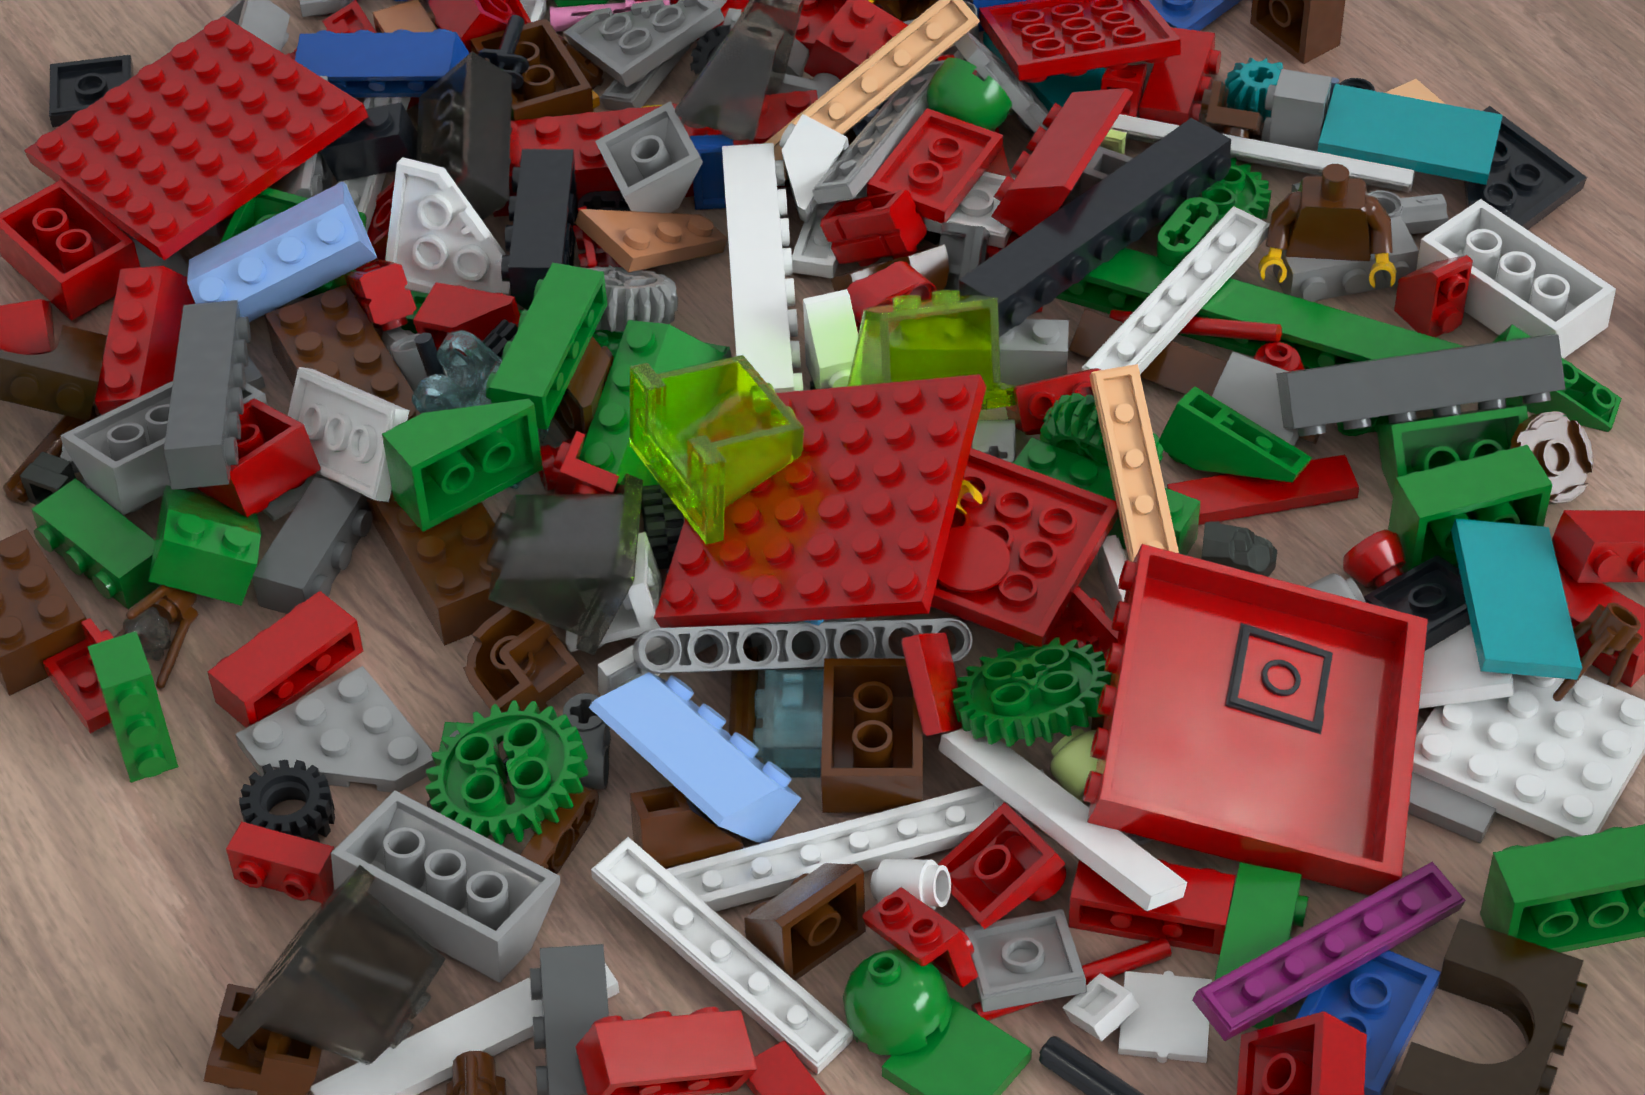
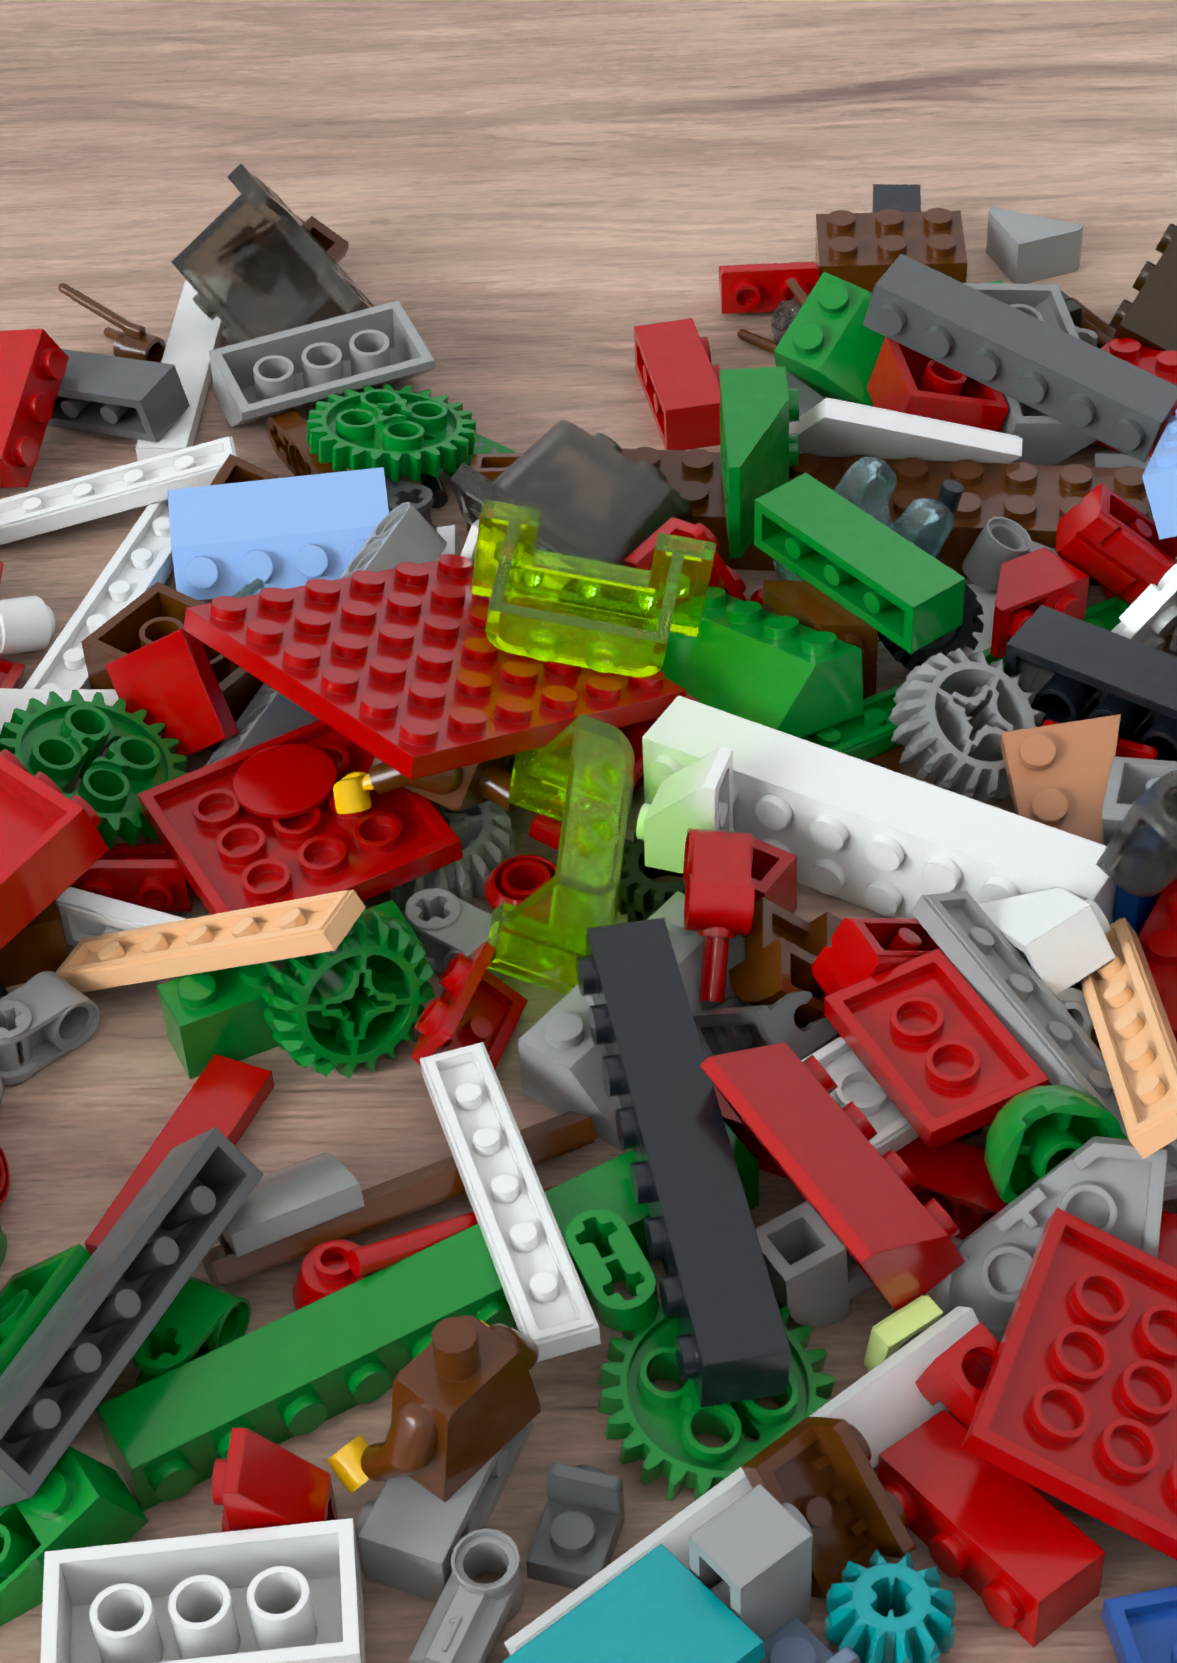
camera: 125 degrees right, 5 degrees down
(133, 706) = (668, 246): green brick -> none
(281, 862) = (460, 318): red piece -> none
(285, 785) = (515, 344): black tyre -> none
(346, 733) = (581, 386): light grey plate -> none
(810, 918) = (52, 541): reddish brown slope -> none
(1224, 441) = (270, 1123): green slope -> none
(1238, 548) = (121, 1071): pearl dark grey rock -> none

